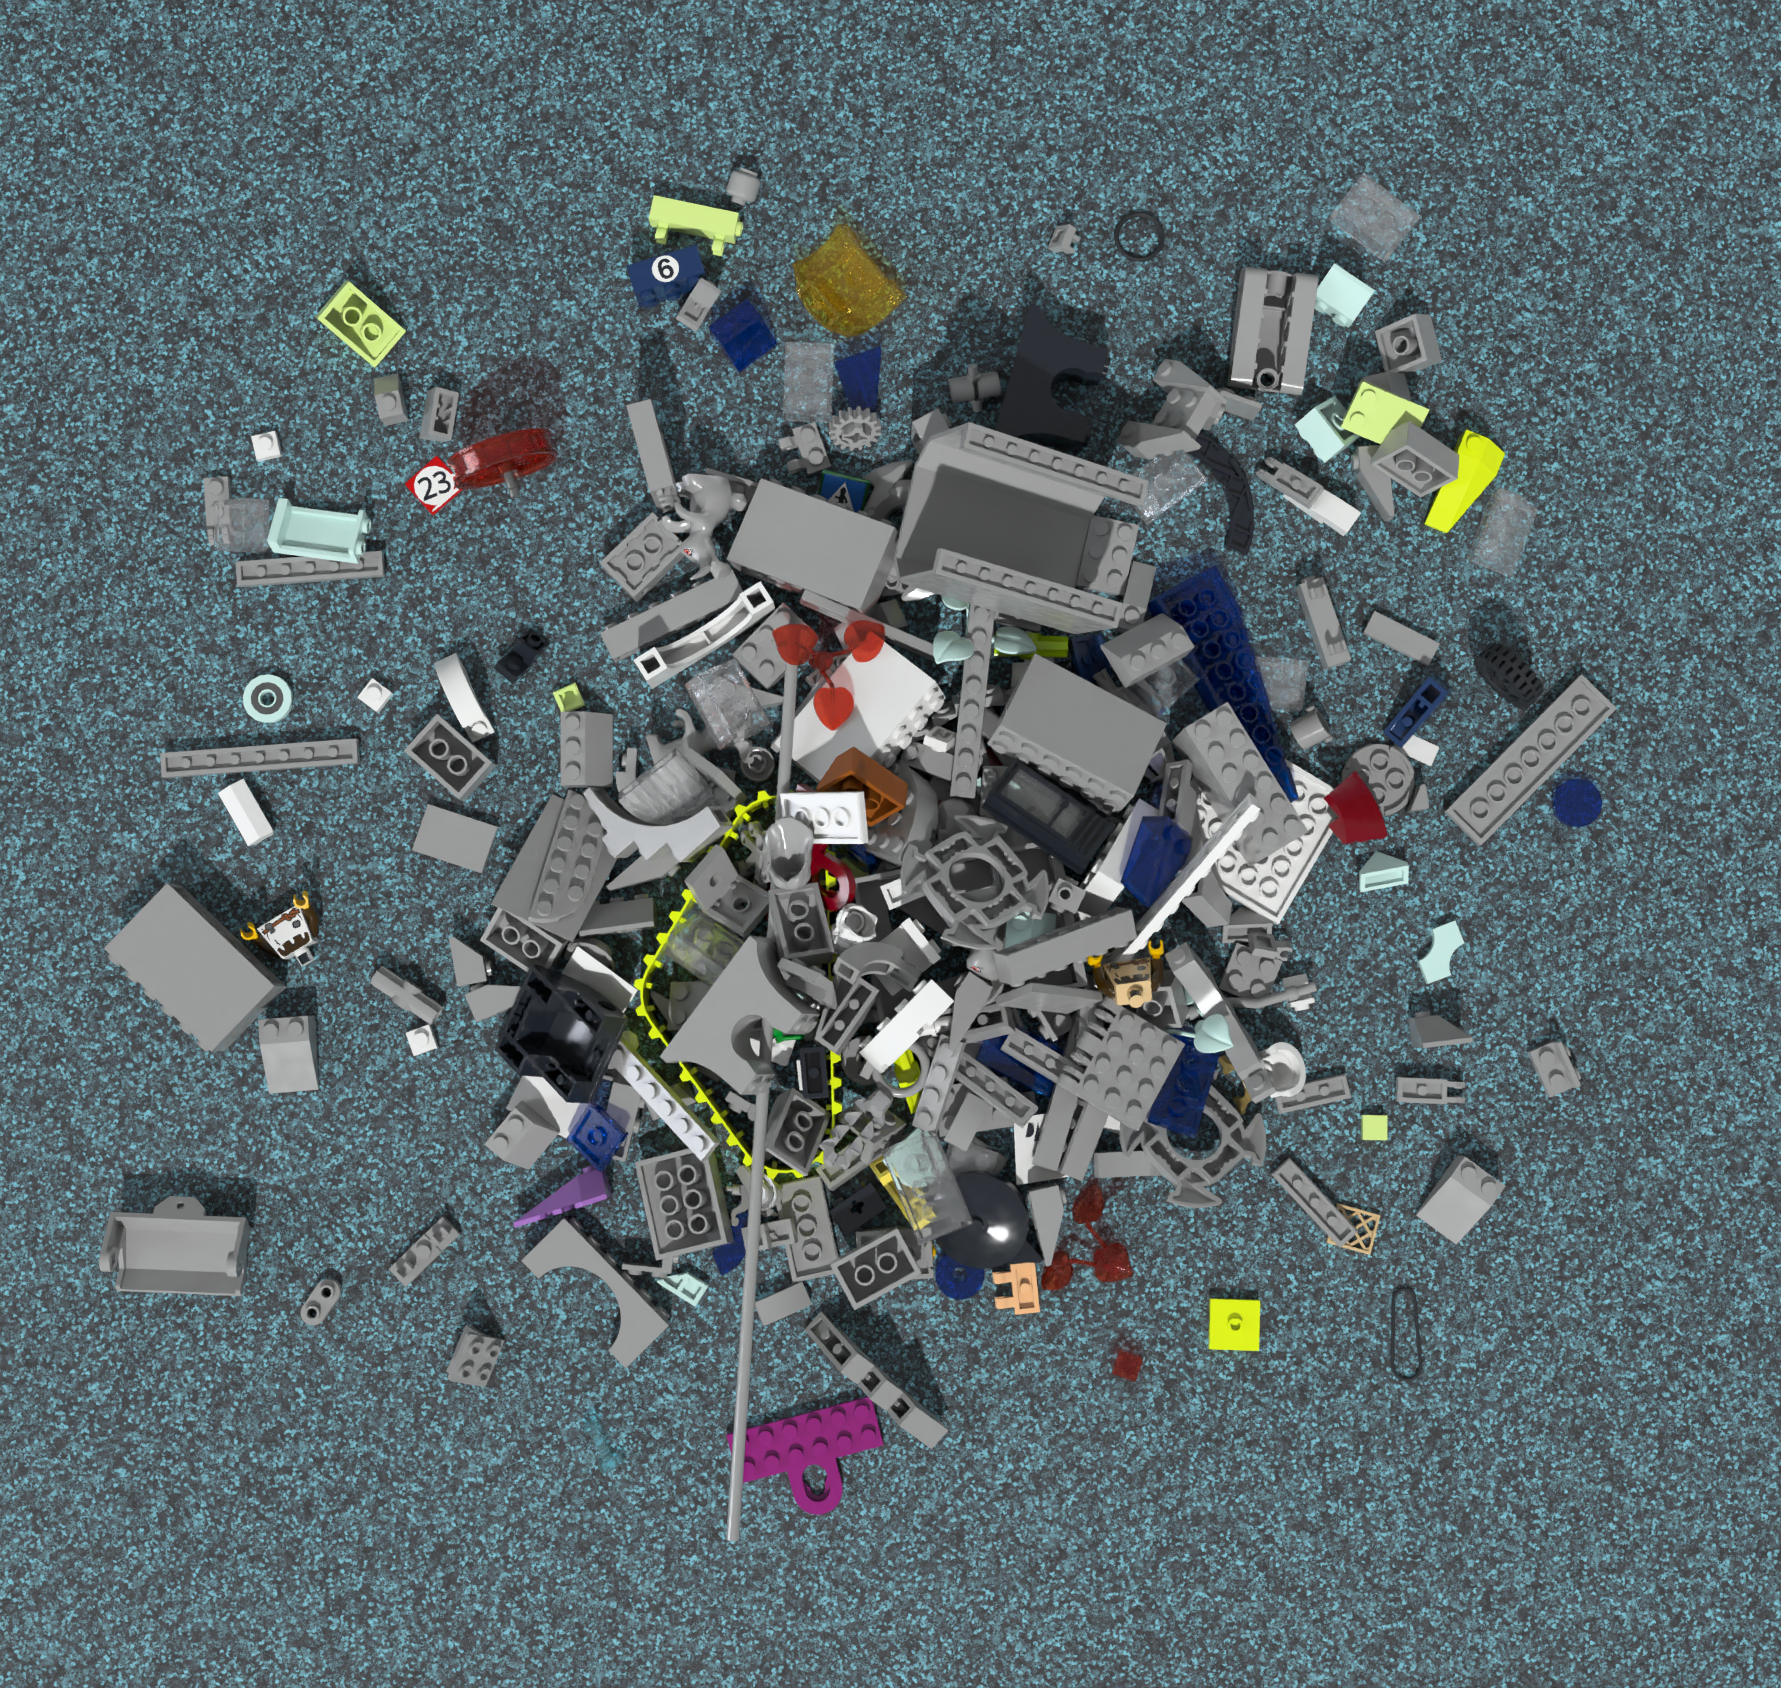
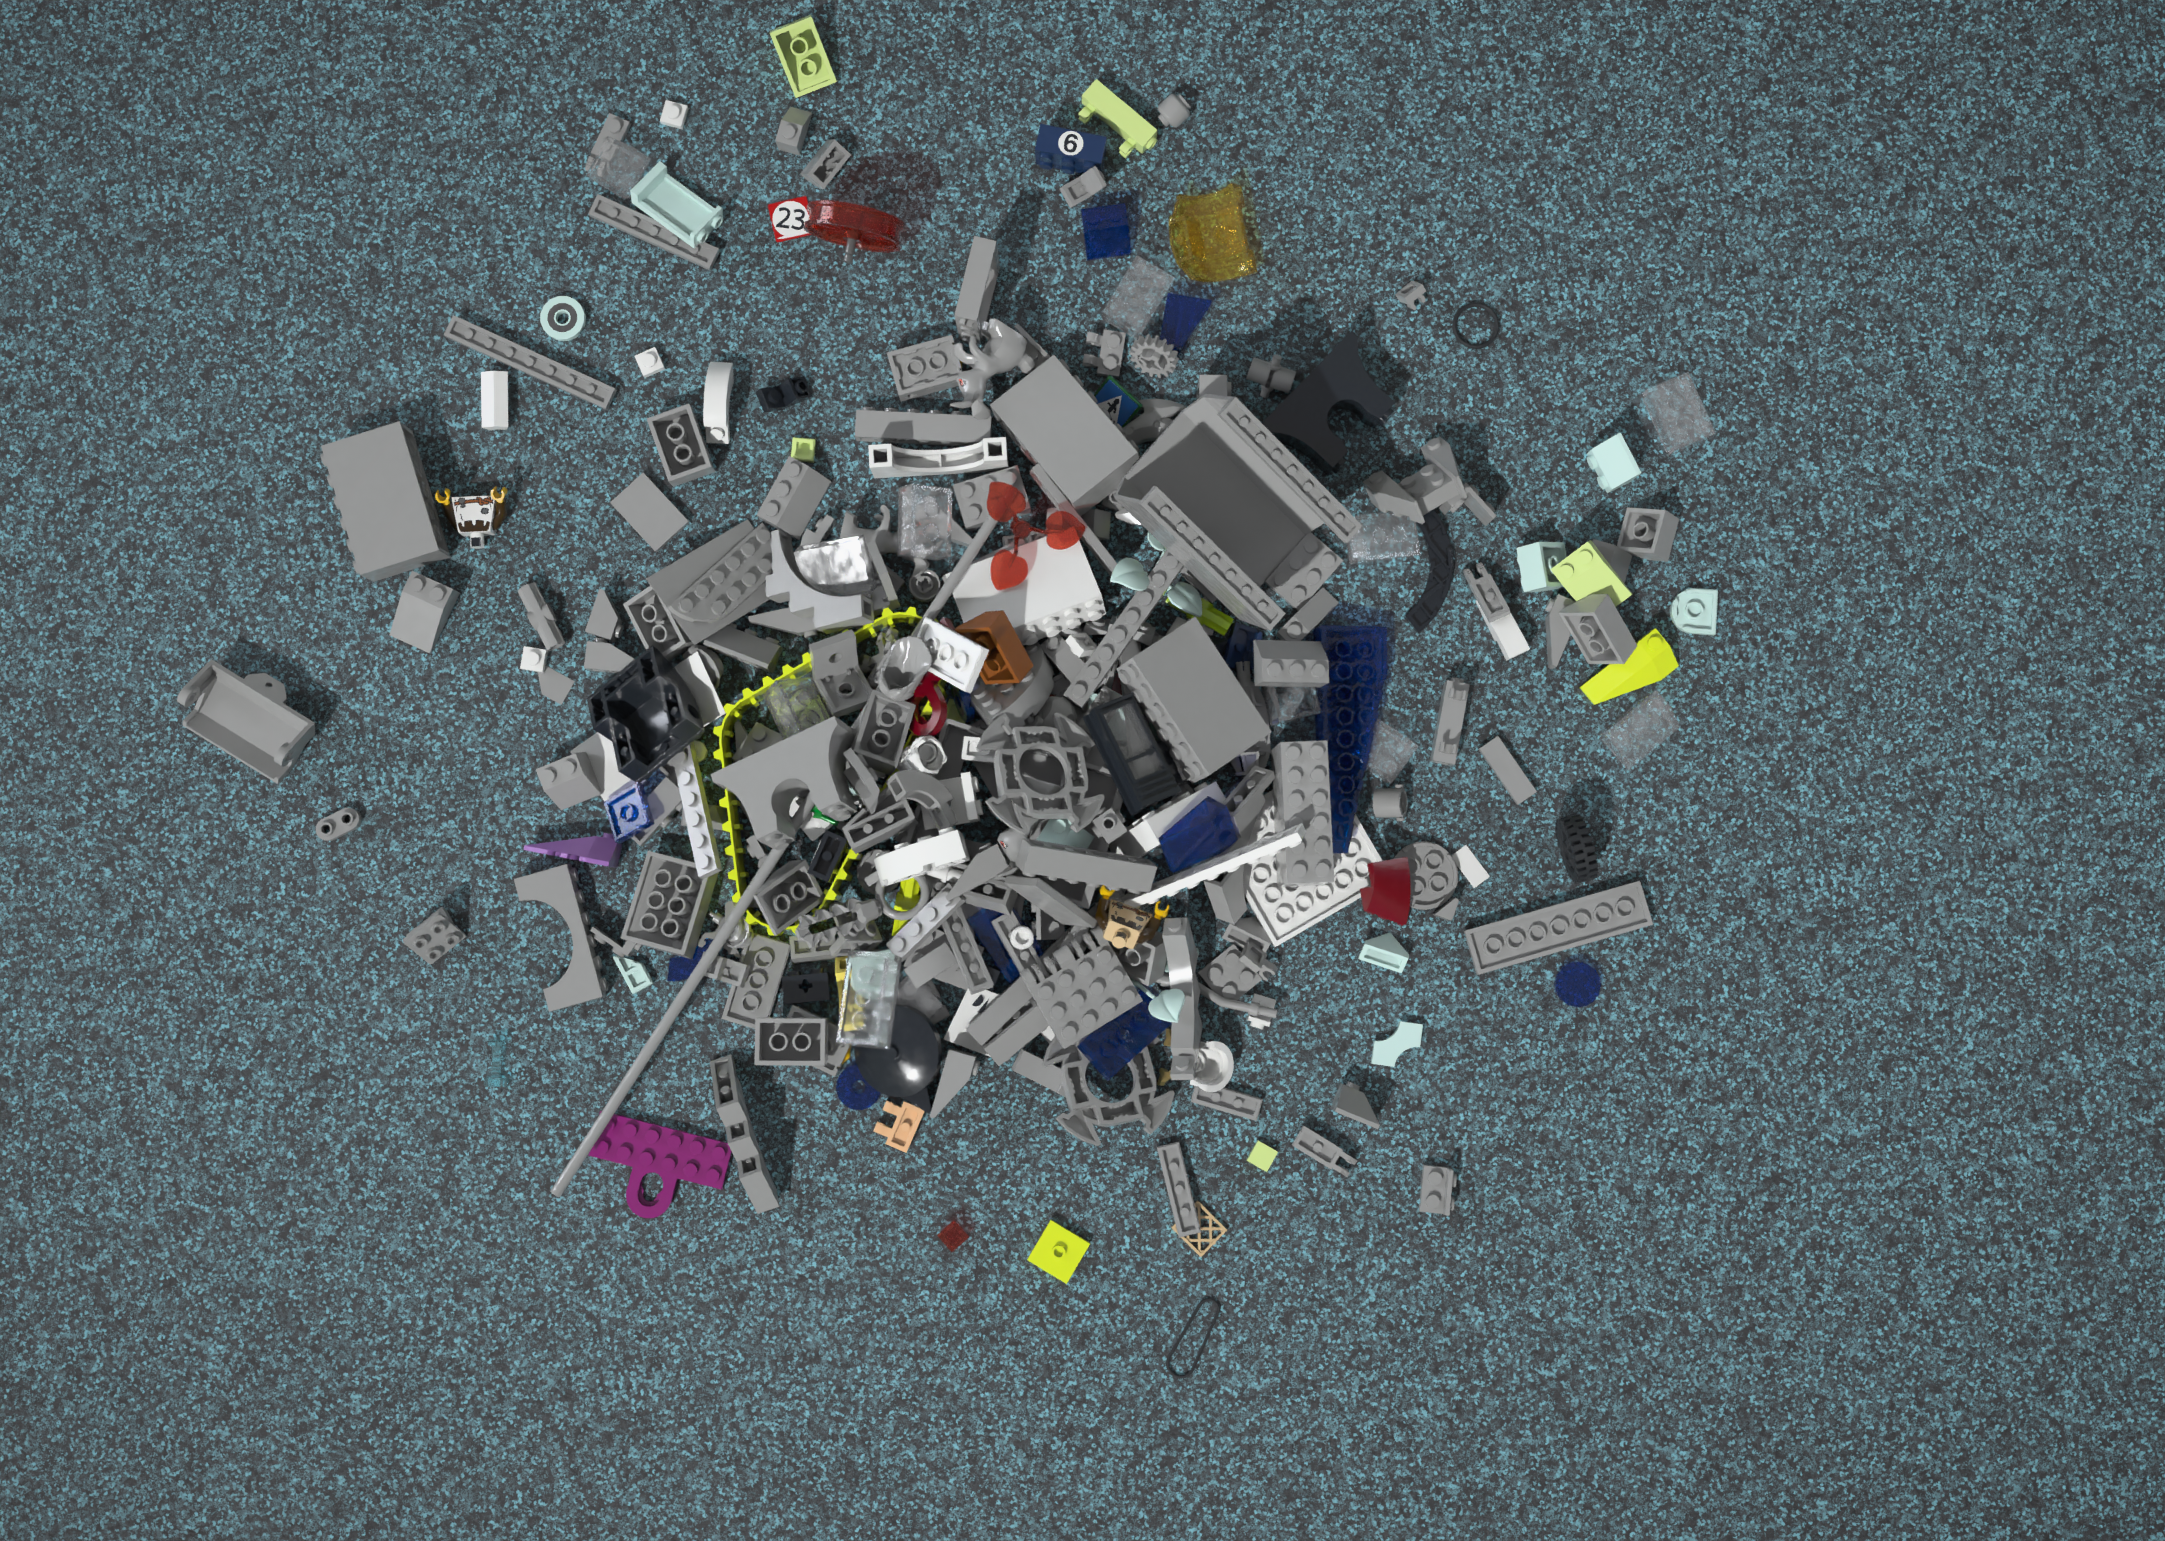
camera: 35 degrees right, 0 degrees up
(424, 1251) = (442, 829): light grey plate -> none
(455, 1053) = (554, 685): none -> light grey sticker
(782, 1303) = (703, 1030): light grey slope -> none
(1038, 1047) = (1021, 937): none -> white tile
(1110, 1262) = (984, 1142): clear red plant -> none
(1272, 329) = (1541, 460): light grey panel -> none
(1418, 710) = (1488, 836): dark blue slope -> none
(1459, 1199) = (1298, 1253): light grey slope -> none
(1492, 393) = (1695, 611): none -> light aqua tile

